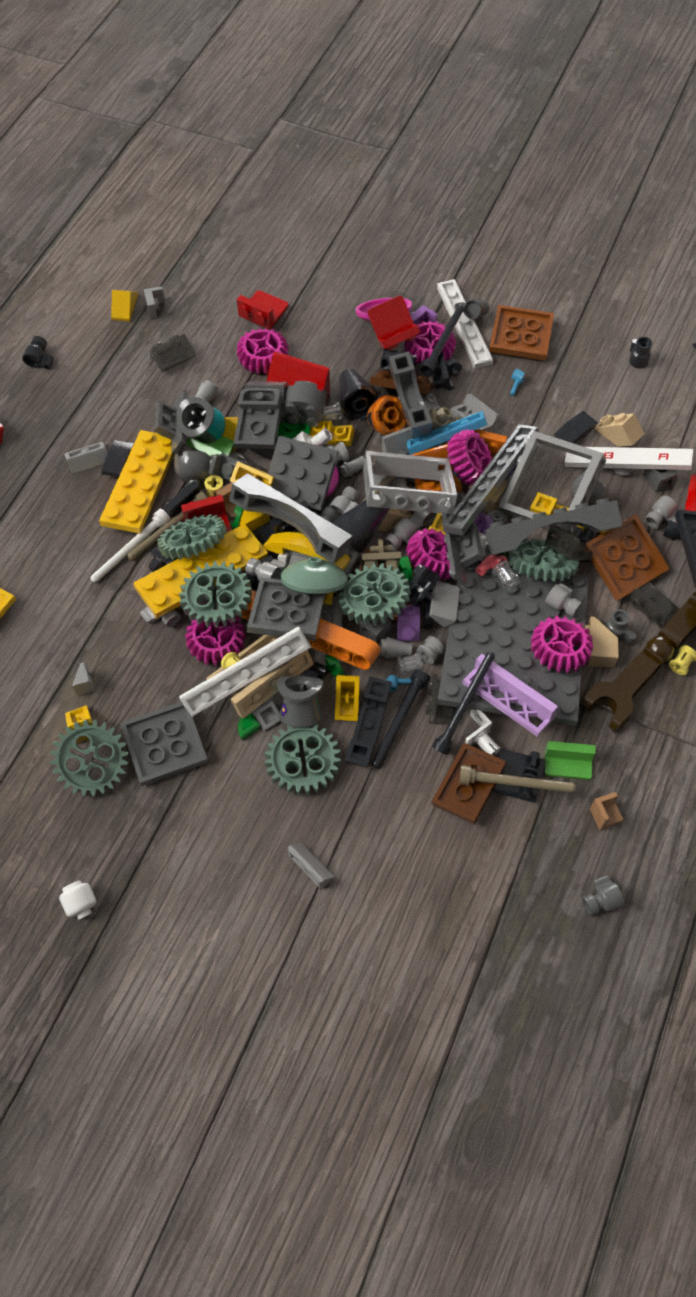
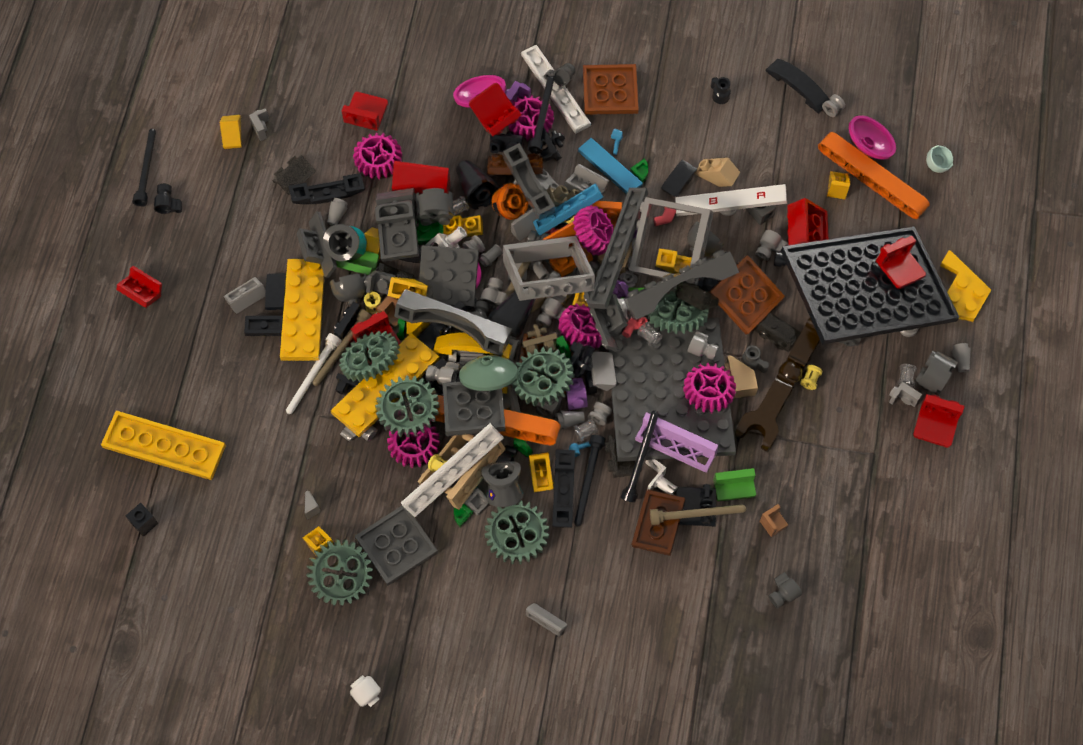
camera: 15 degrees left, 5 degrees up
(13, 346) = (140, 197): none -> black piece
(93, 488) = (263, 325): none -> black plate
(193, 376) = (327, 192): none -> black slope
(501, 402) = (609, 166): none -> dark azure tile
(535, 414) = (640, 170): none -> green tile
(554, 464) = (667, 217): none -> coral arm

